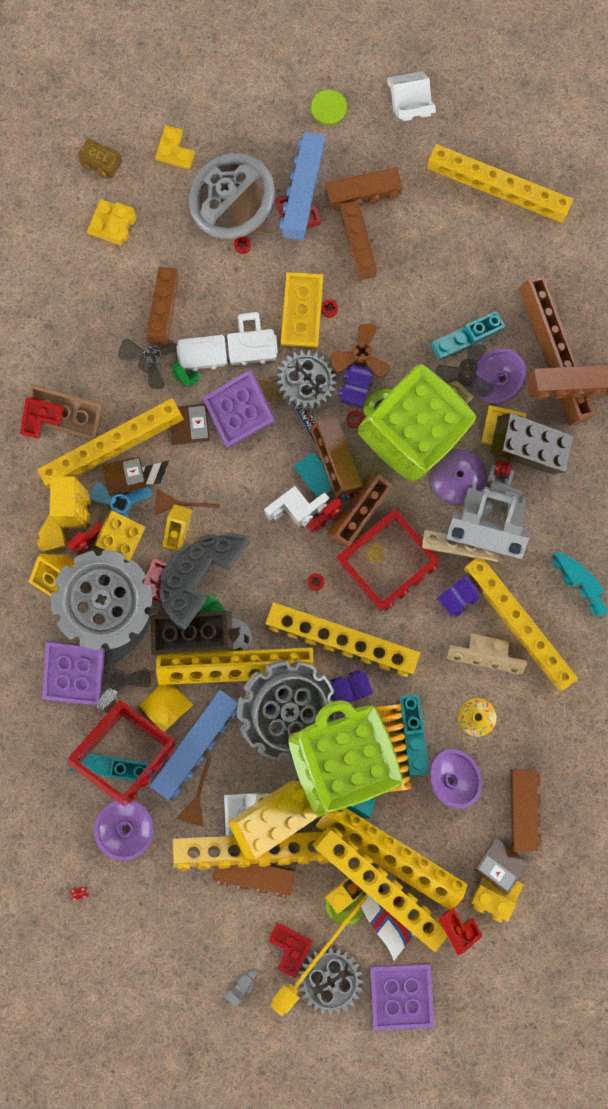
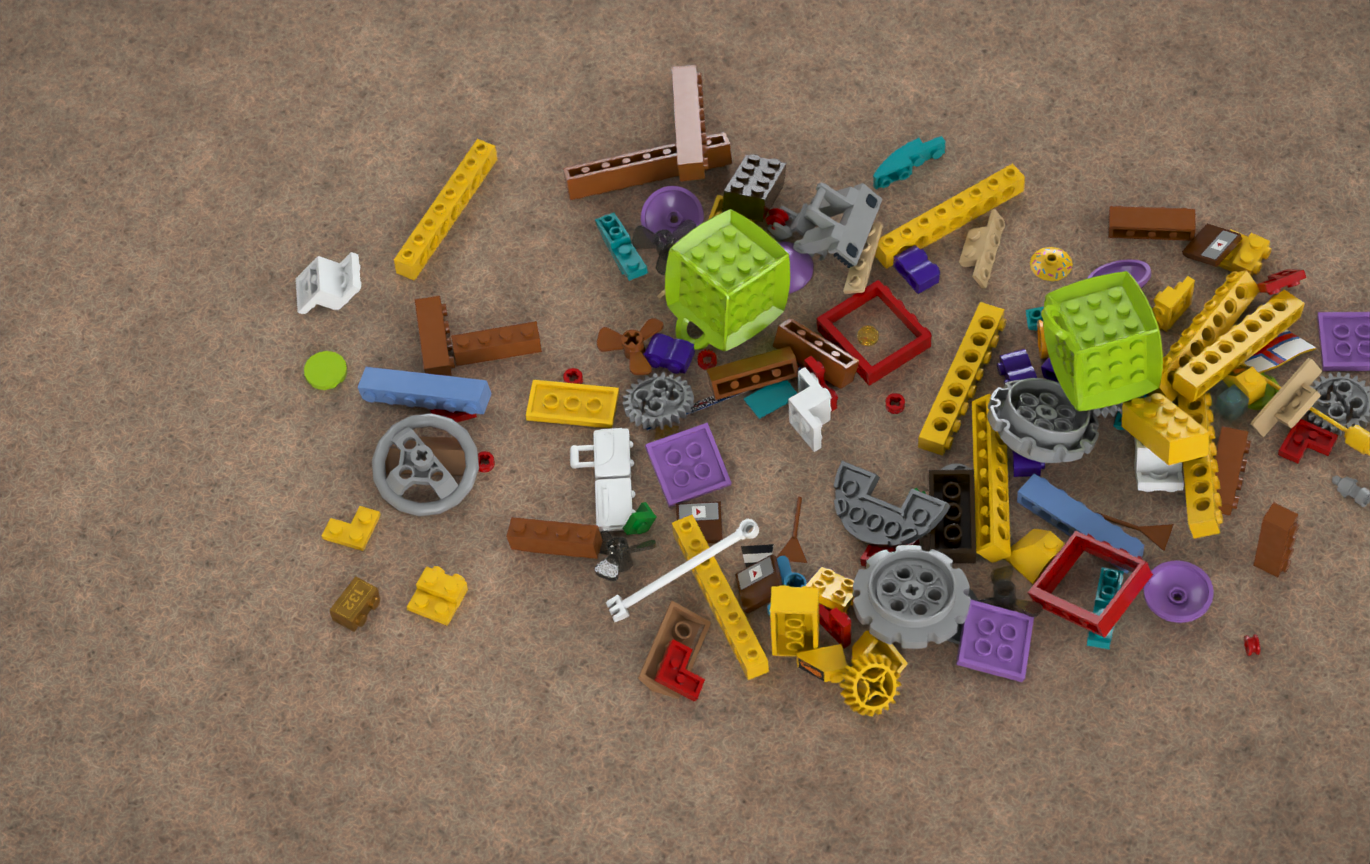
camera: 85 degrees left, 25 degrees down
(24, 570) = (858, 696): none -> yellow gear
(147, 453) = (621, 606): none -> white hinge
(160, 918) = (1276, 540): none -> dark orange brick
(176, 527) = (824, 533): yellow slope -> none
(321, 937) = (1291, 400): none -> tan bracket
(324, 881) = (1232, 403): none -> clear light blue brick
(423, 823) = (1173, 303): none -> yellow plate

